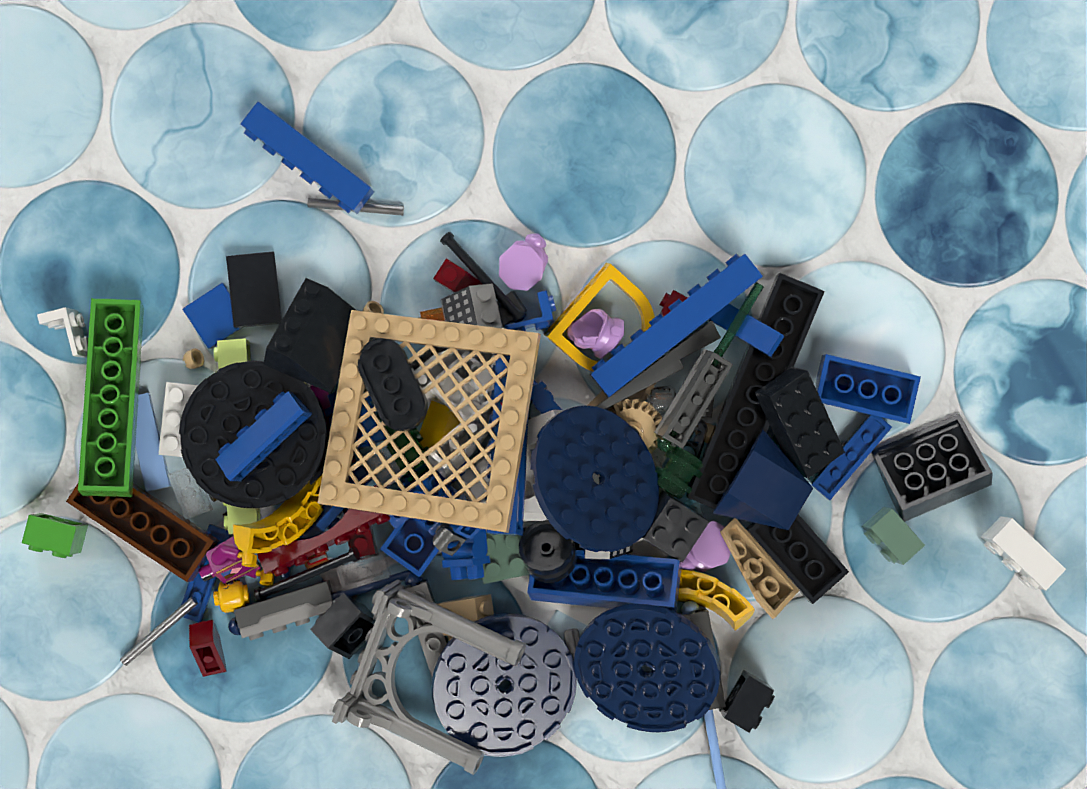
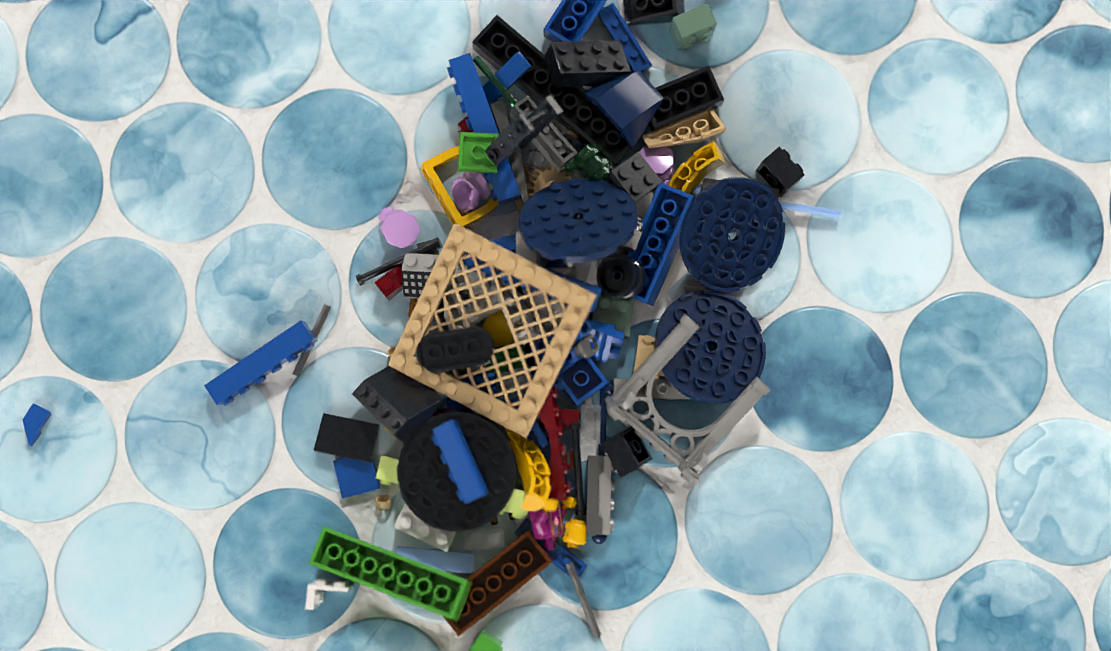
camera: 75 degrees left, 5 degrees down
(207, 648) = (608, 565): dark red slope -> none
(547, 307) = (438, 221): blue bracket -> none
(641, 329) = (472, 154): none -> bright green tile
(680, 376) = (523, 130): none -> black fence

